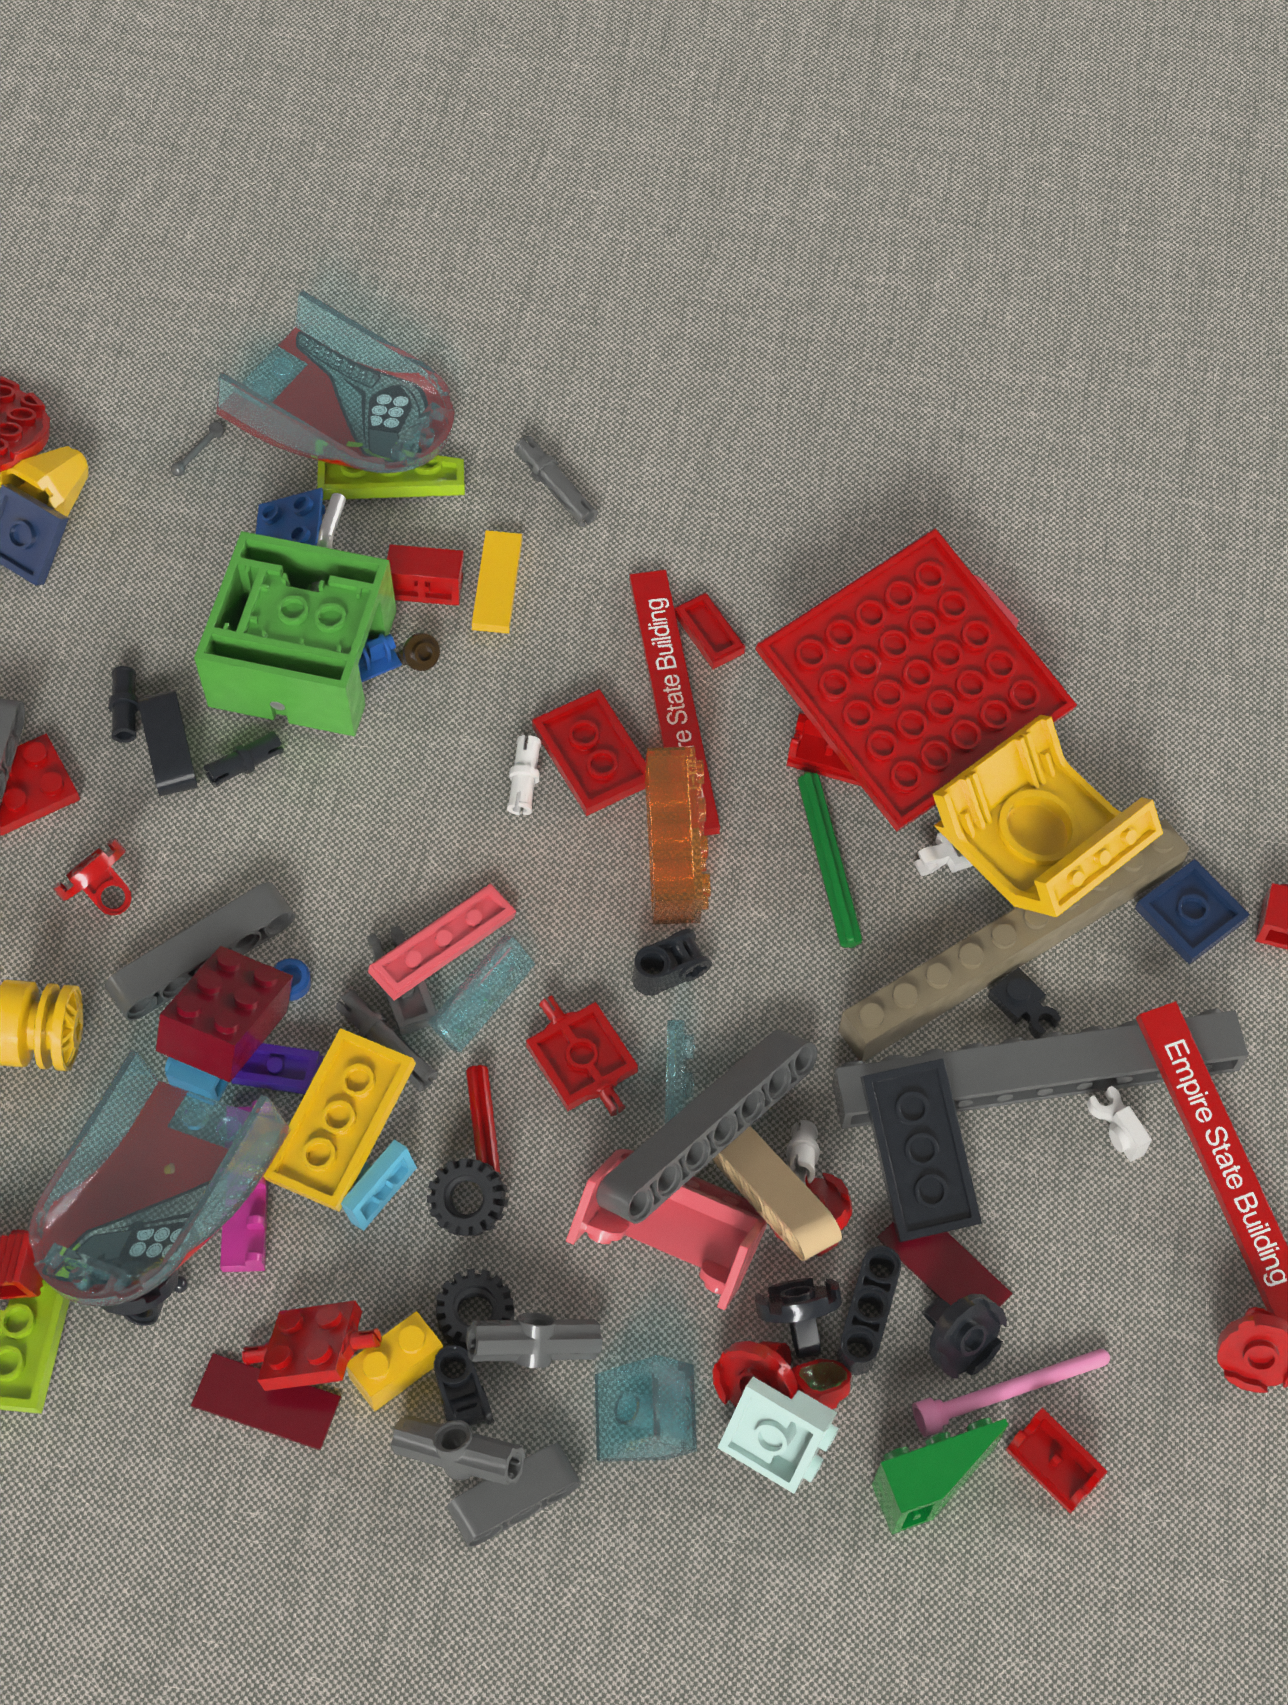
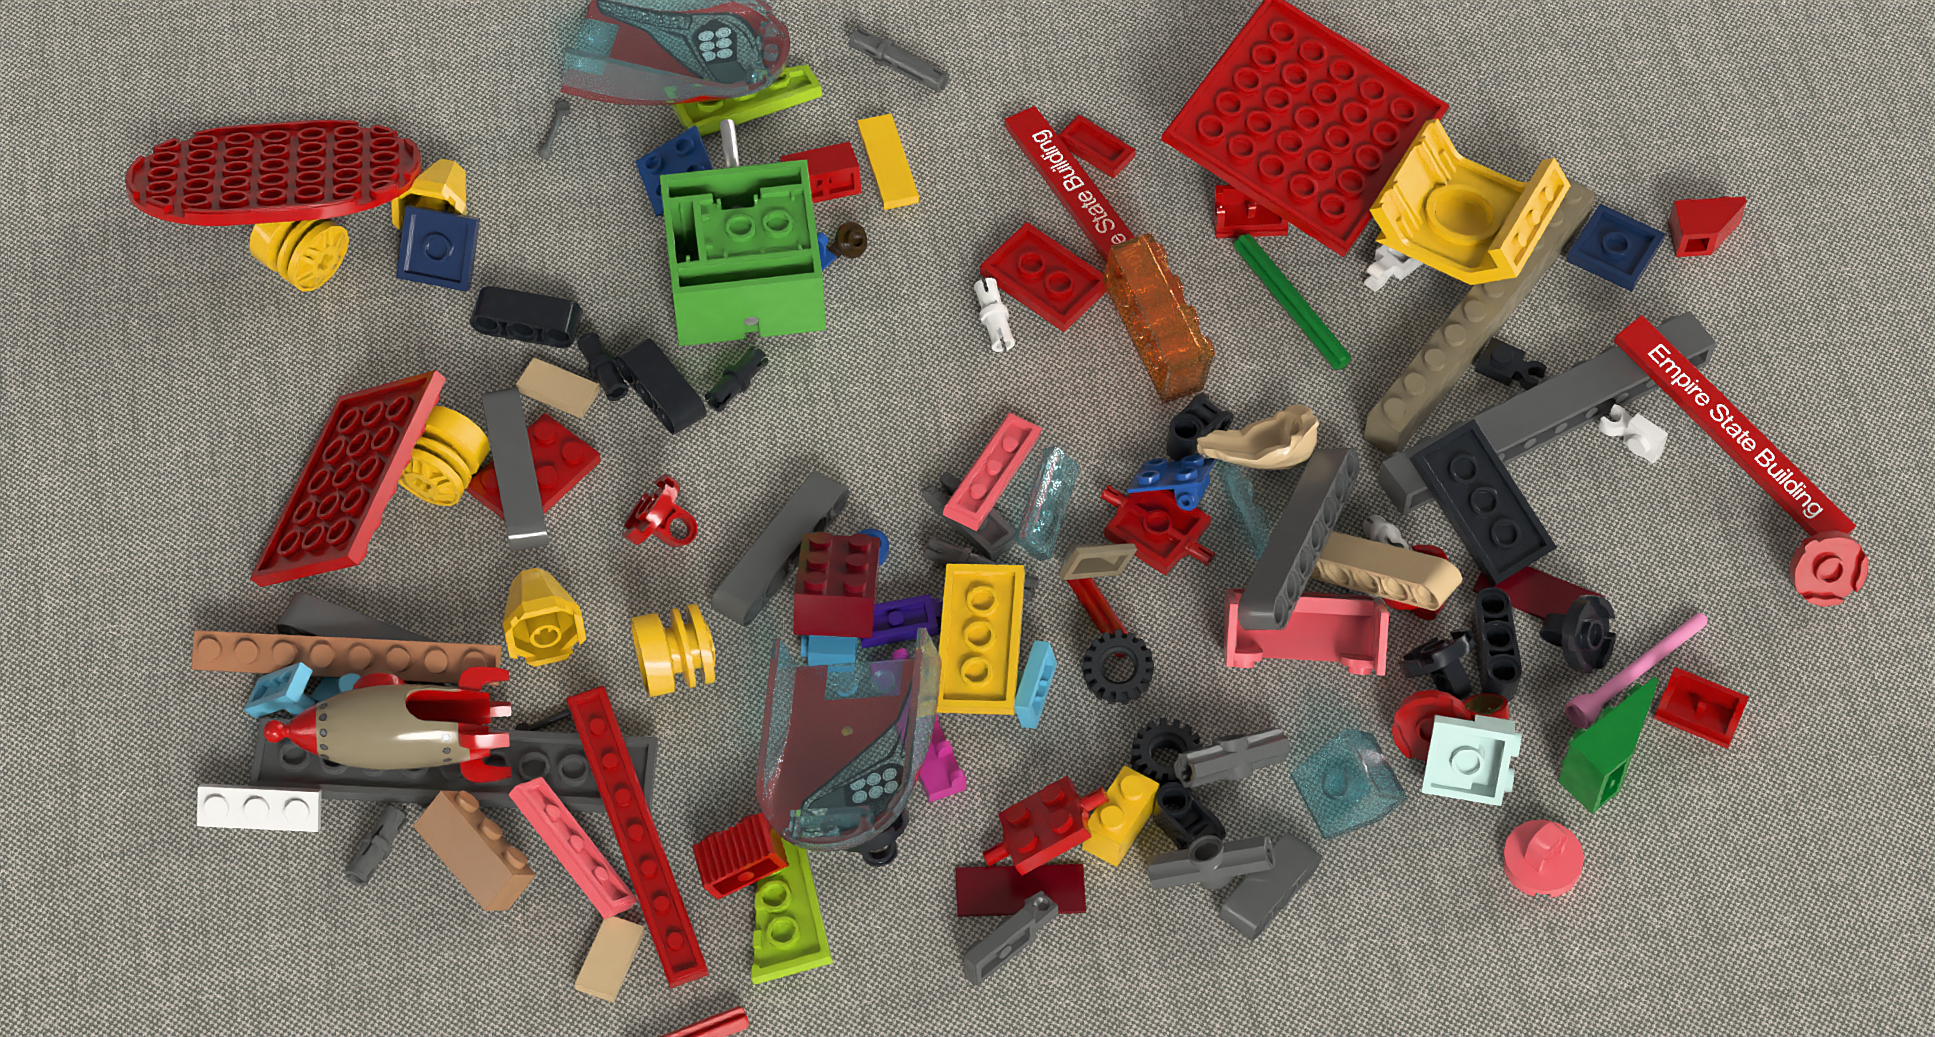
camera: 20 degrees left, 5 degrees down
(73, 711) = (558, 387): none -> tan tile
(76, 630) = (526, 317): none -> black beam
(224, 1453) = (1008, 939): none -> dark grey hinge
(497, 1071) = (1095, 560): none -> dark tan slope
(622, 1013) = (1186, 477): none -> blue hinge
(727, 1005) = (1268, 444): none -> tan hair
(814, 1568) = (1542, 858): none -> coral tile

